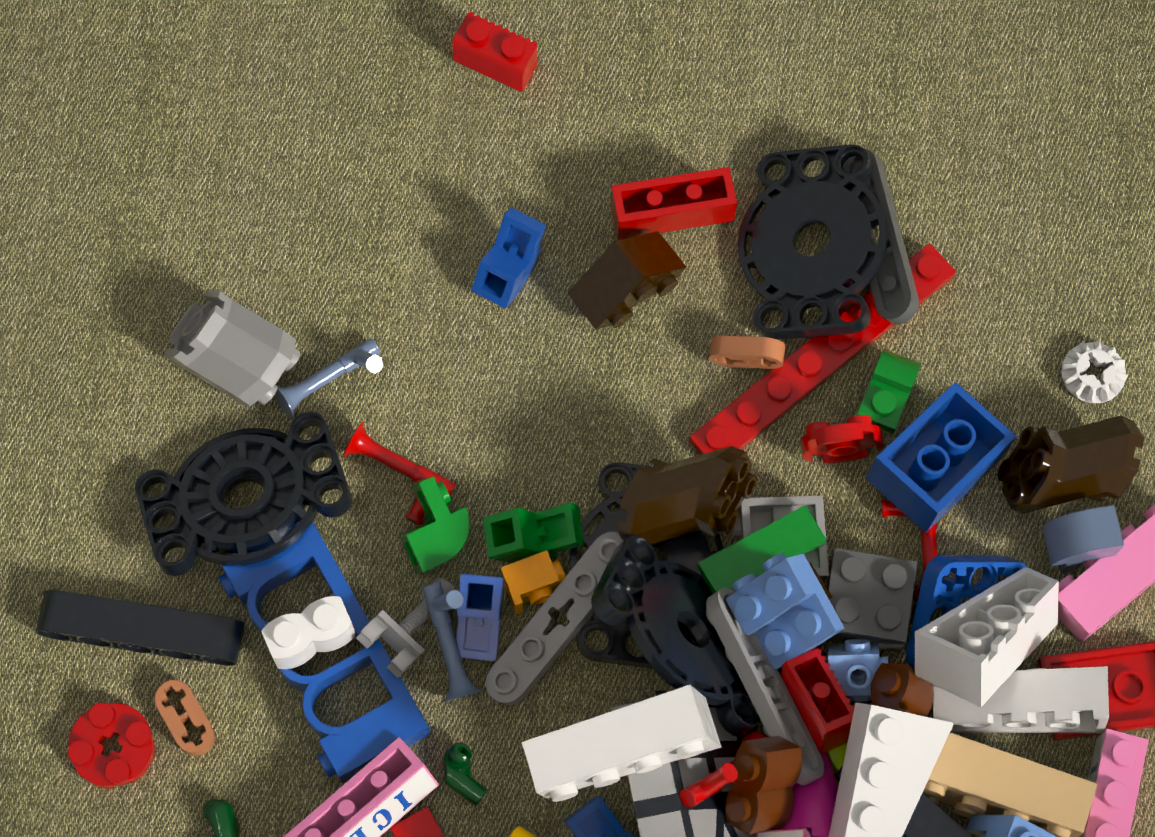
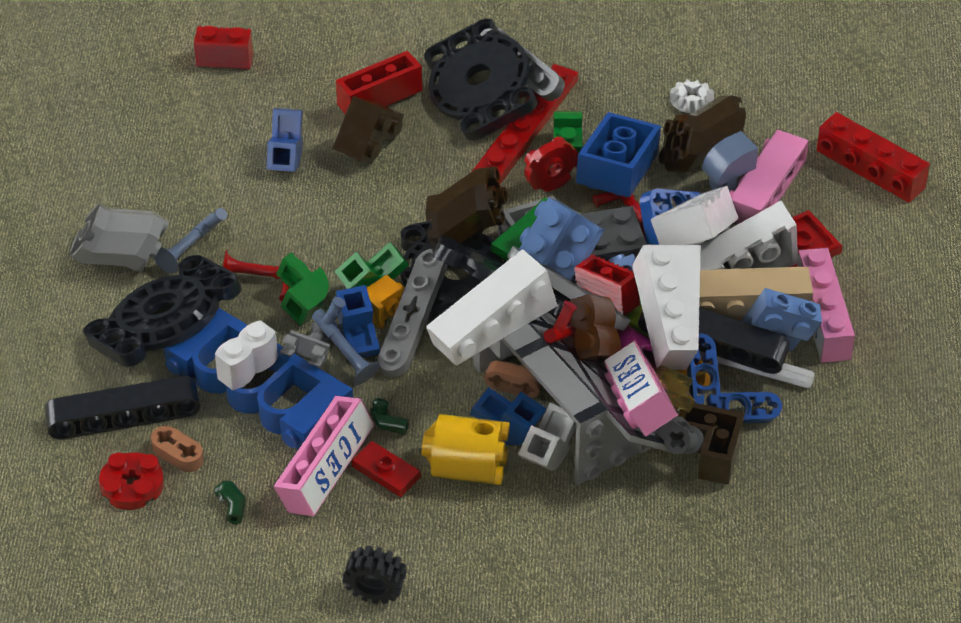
camera: 20 degrees left, 25 degrees down
(747, 352) = (465, 145): nougat beam -> none

